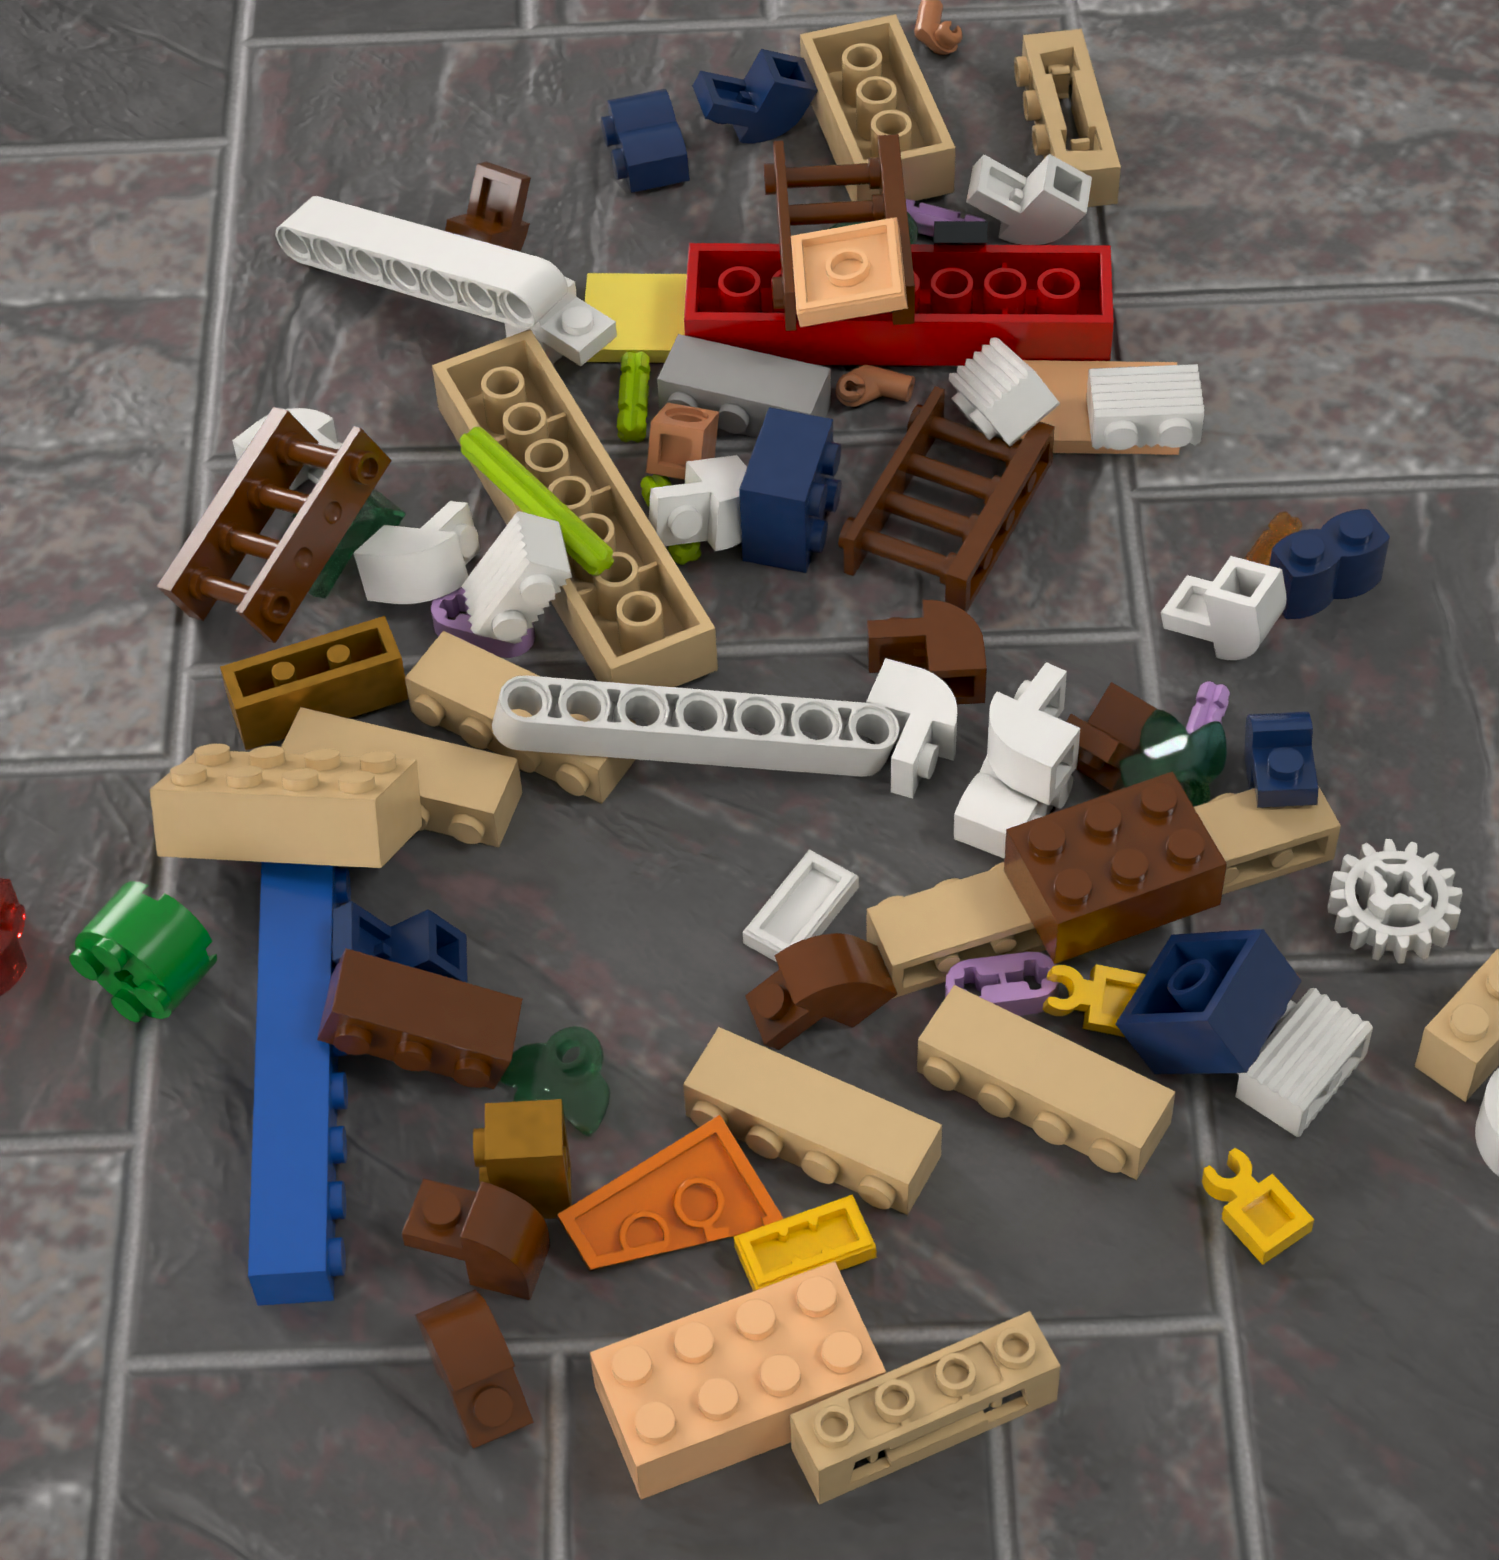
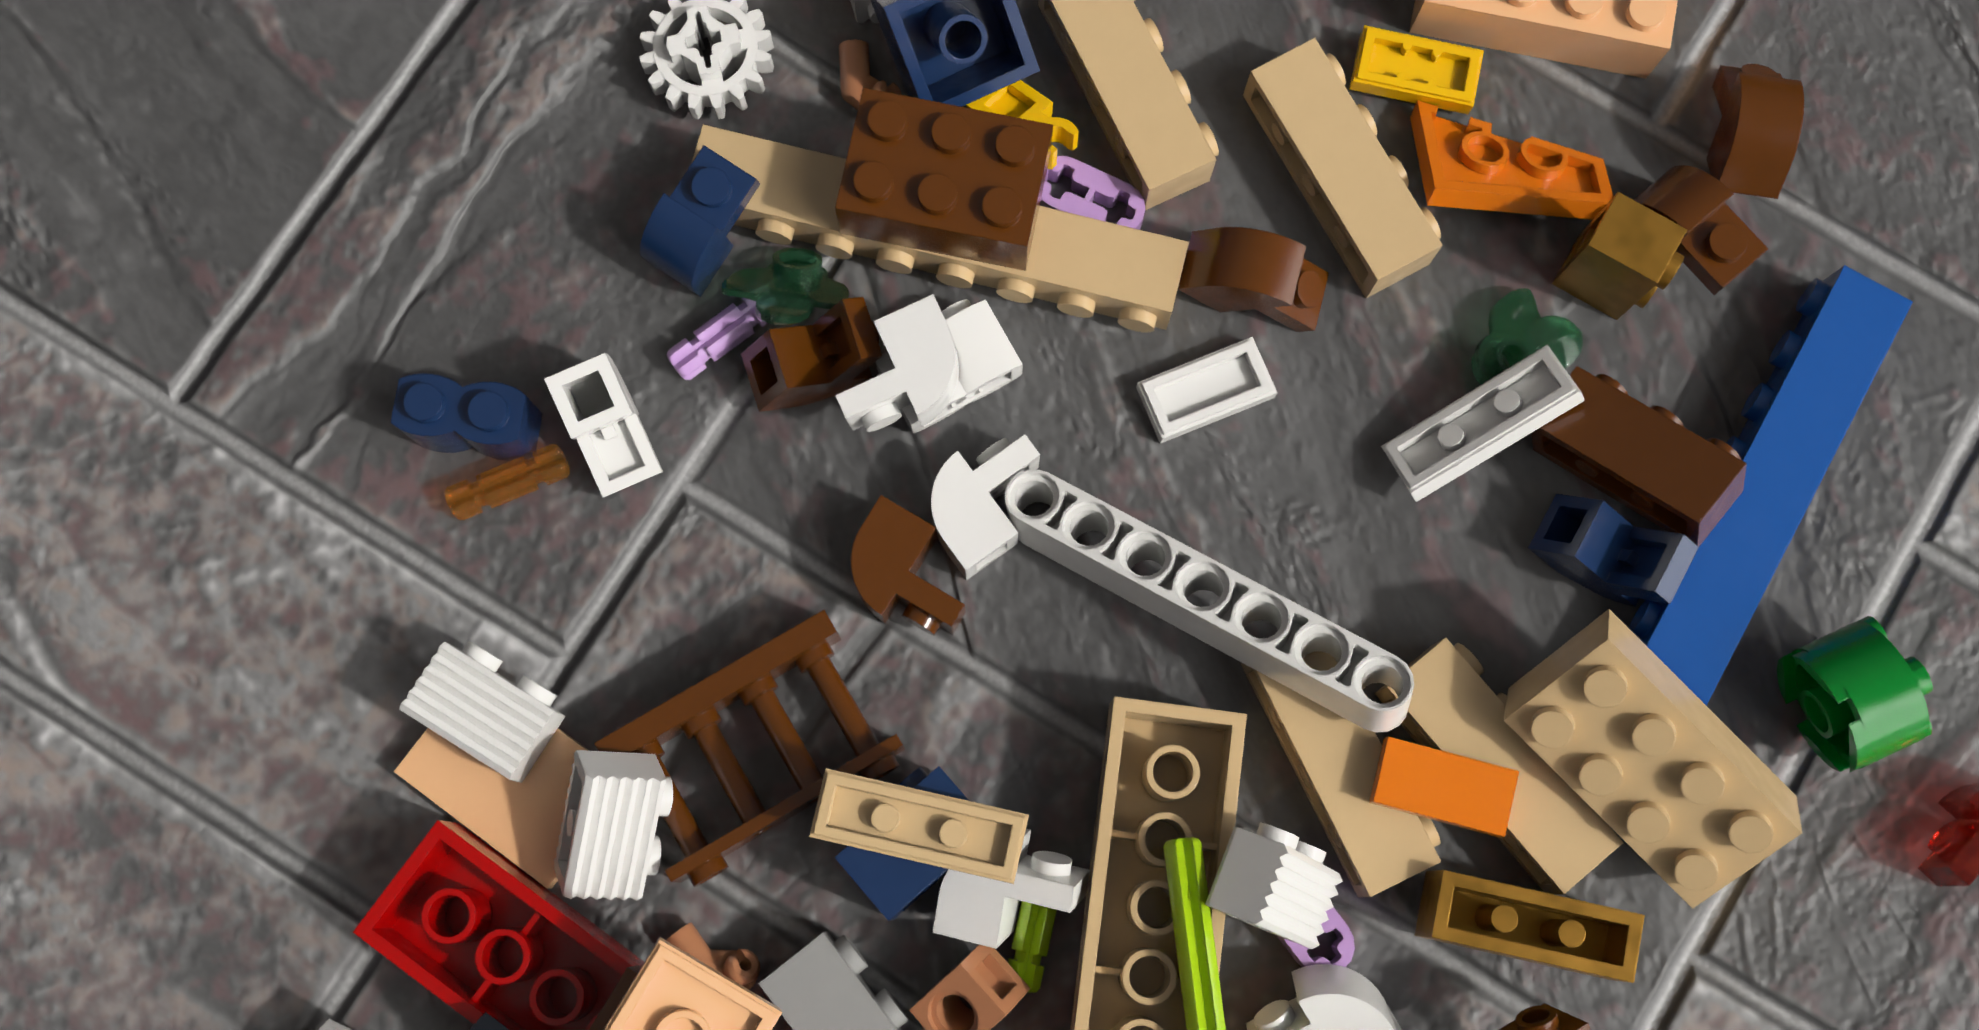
camera: 150 degrees left, 25 degrees up
(433, 711) = (1444, 787): none -> orange tile
(560, 984) = (1483, 423): none -> white tile
(789, 457) = (919, 826): none -> tan tile

